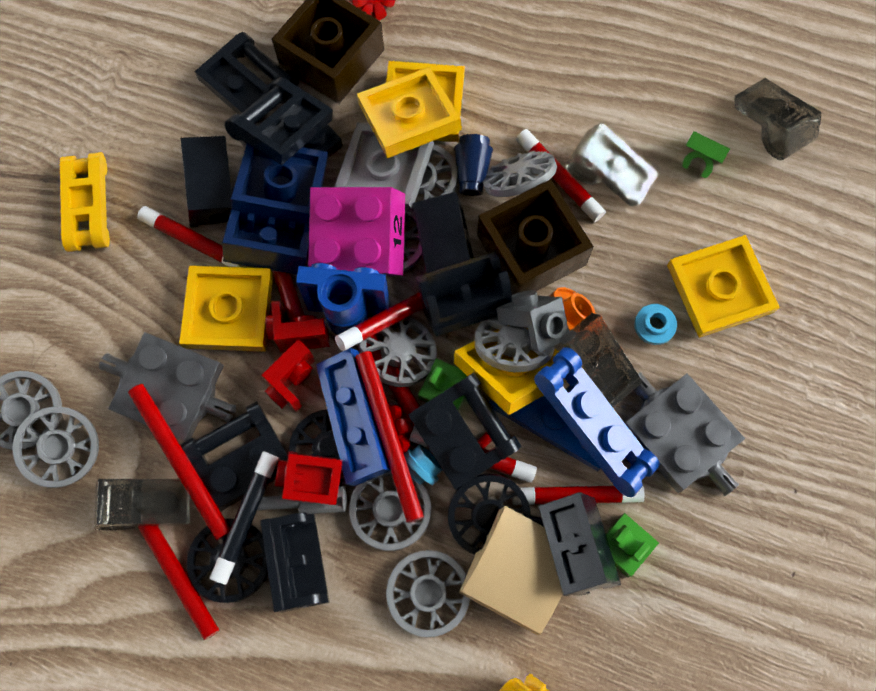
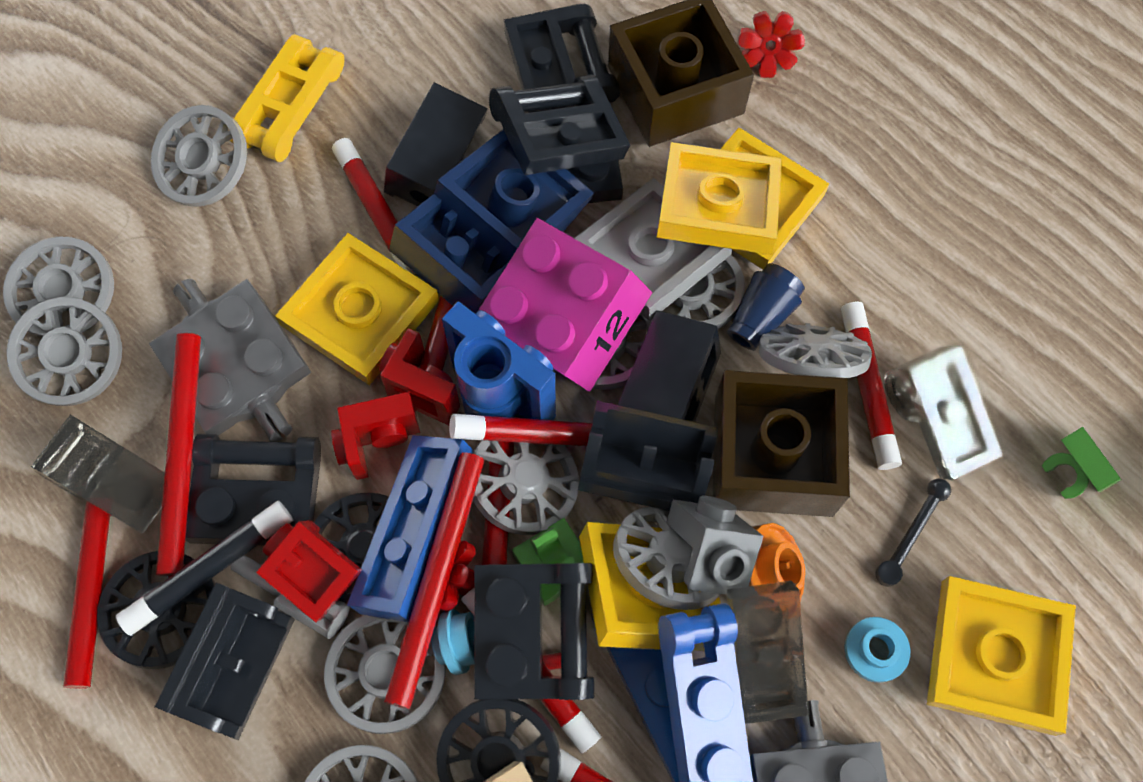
camera: 30 degrees right, 5 degrees down
(53, 272) = (198, 156): none -> light grey wheel
(635, 277) = (890, 572): none -> black hinge

